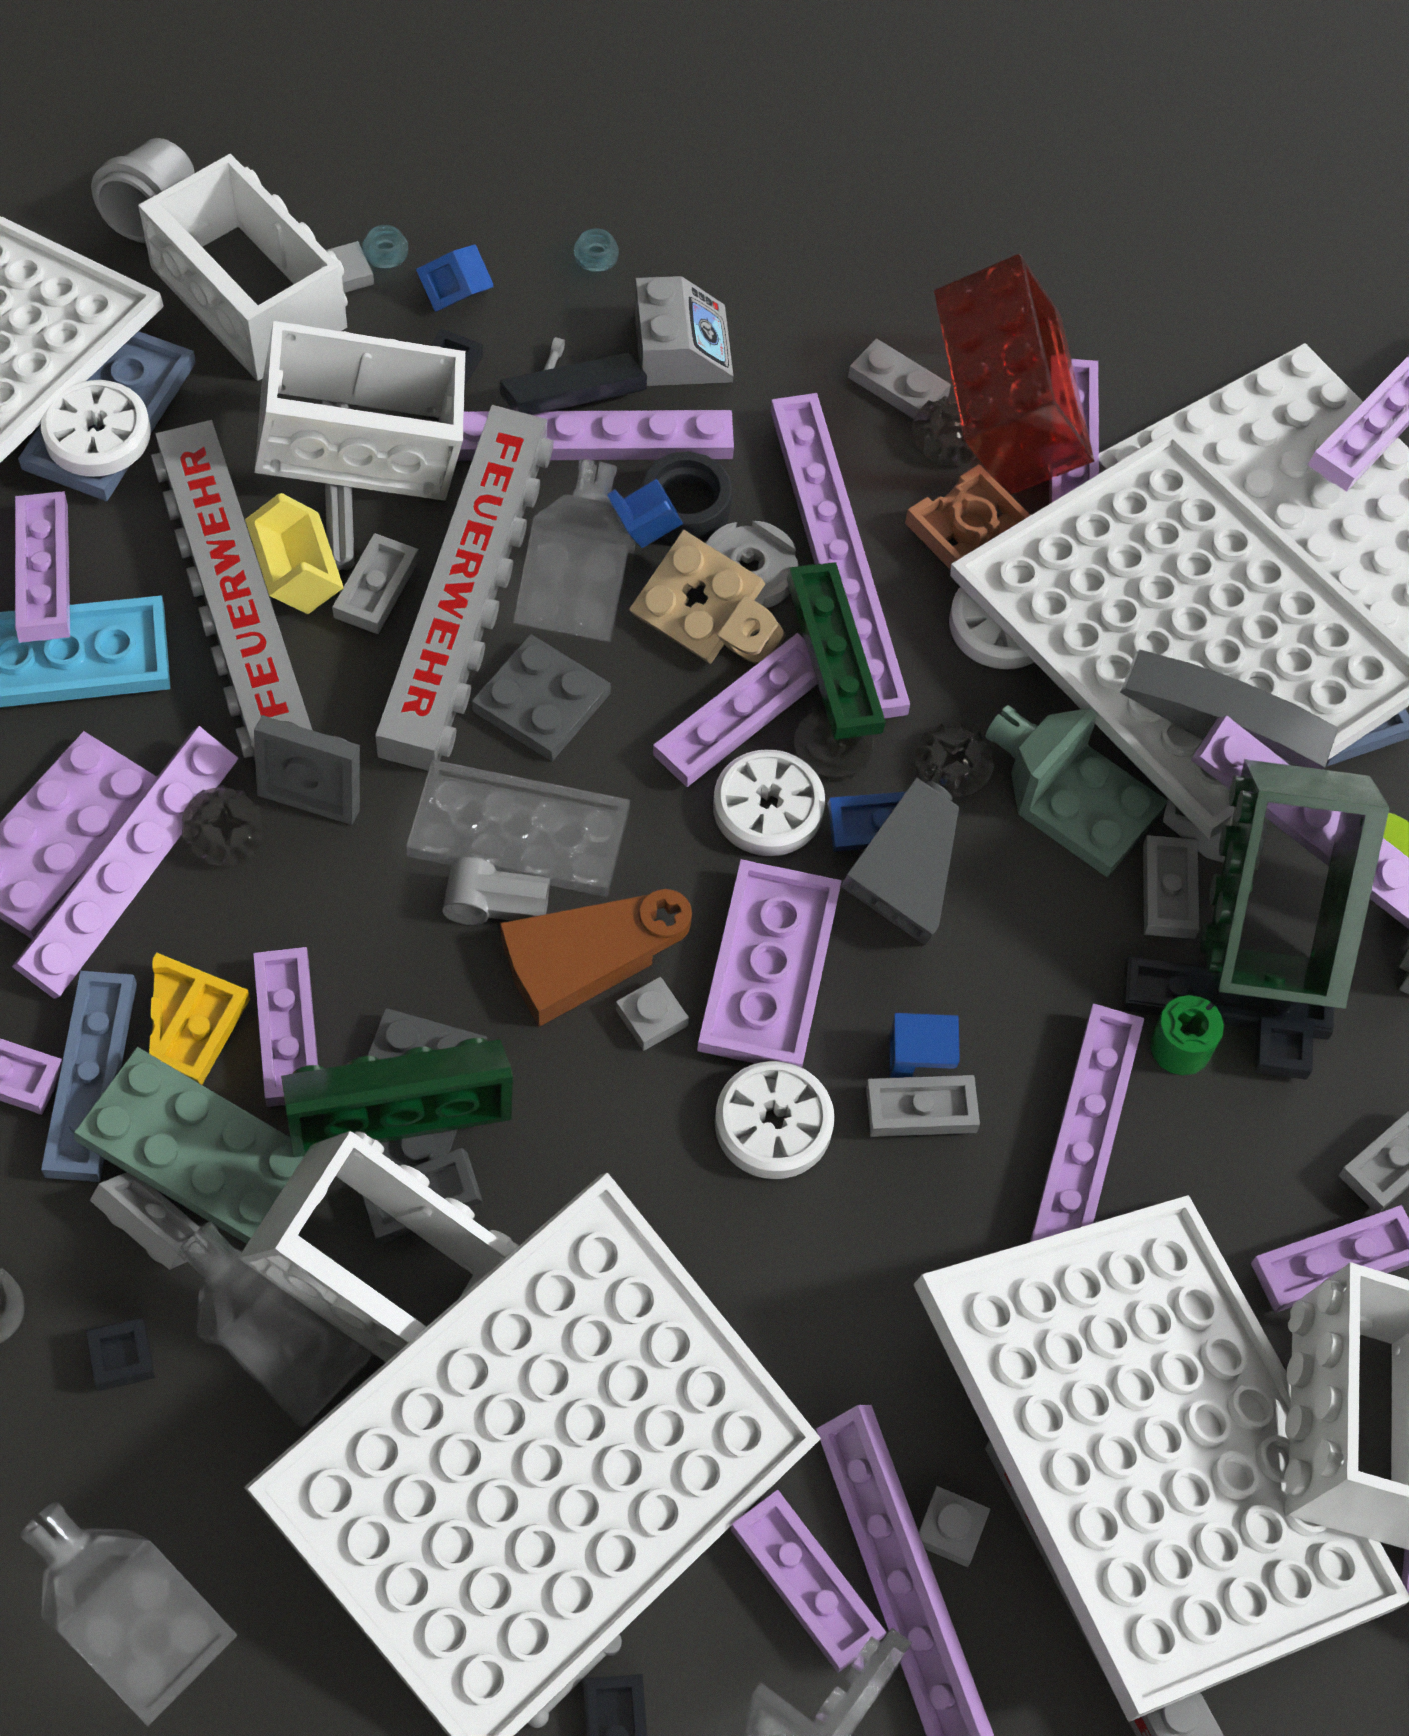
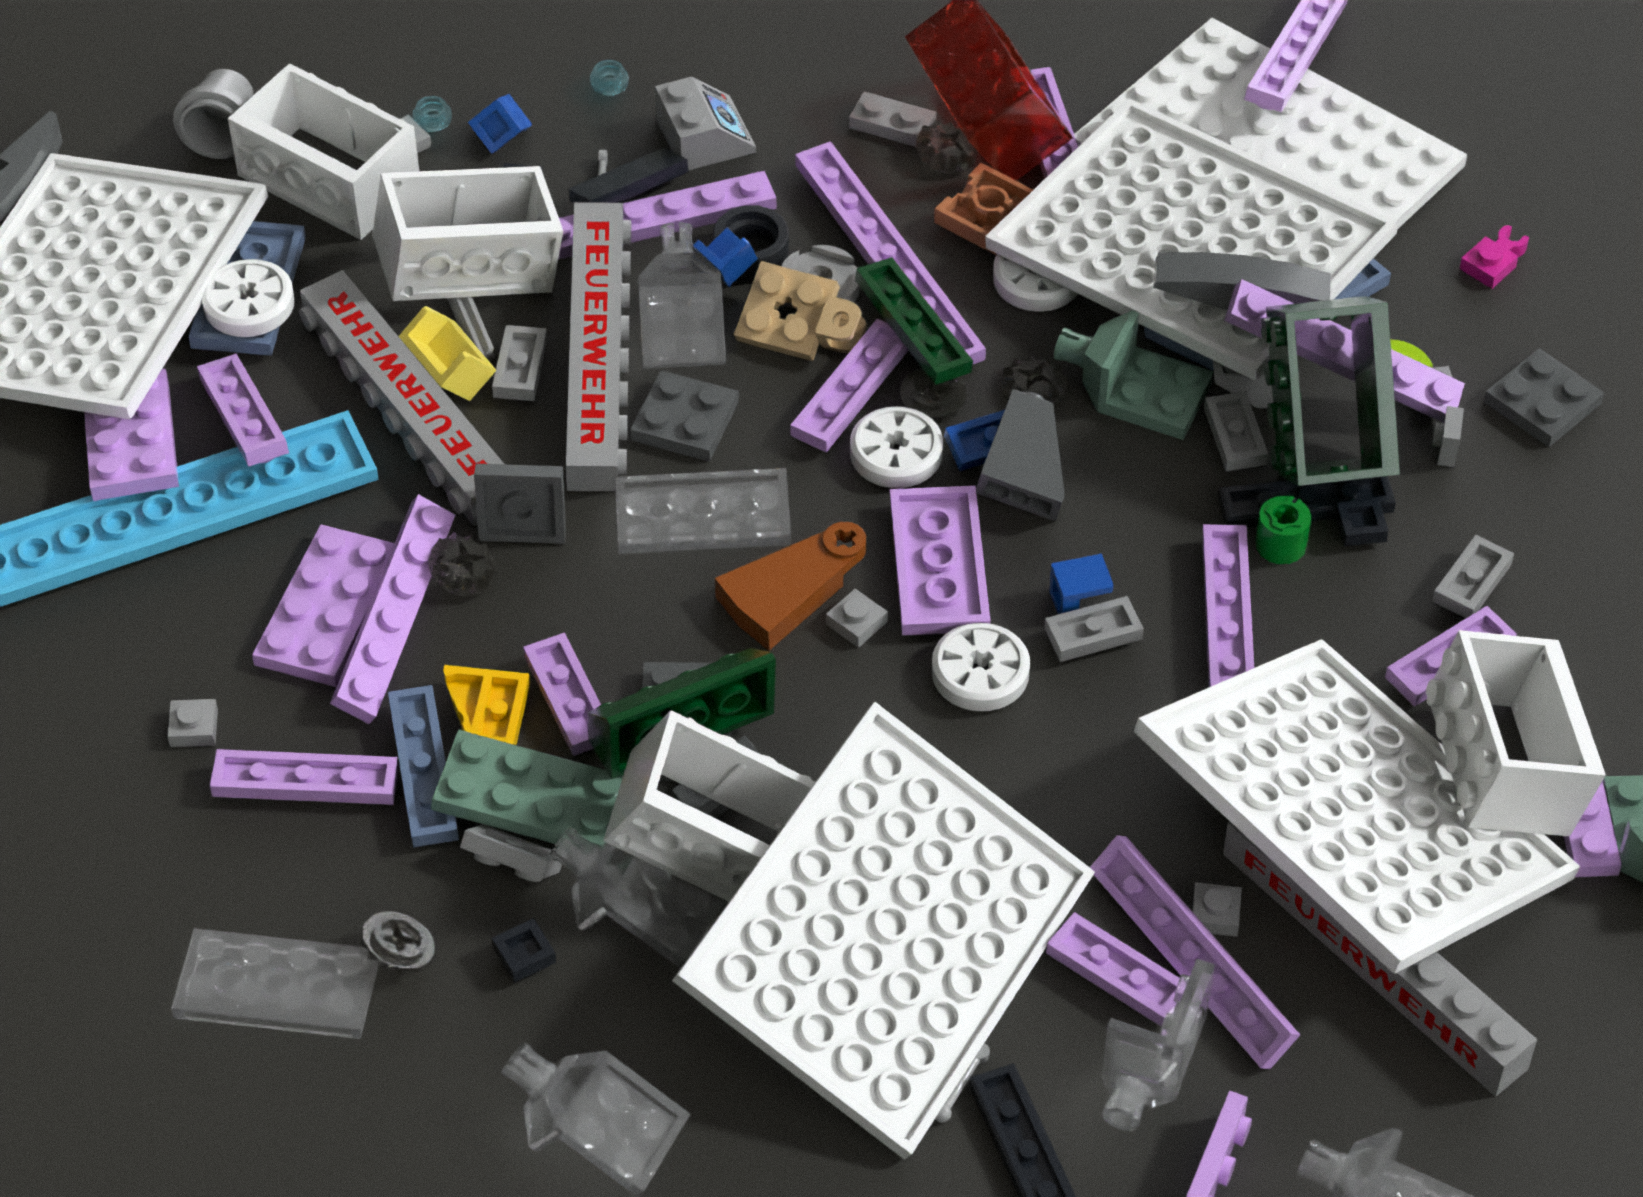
camera: 10 degrees left, 10 degrees down
(481, 892) = (689, 563): light grey piece -> none

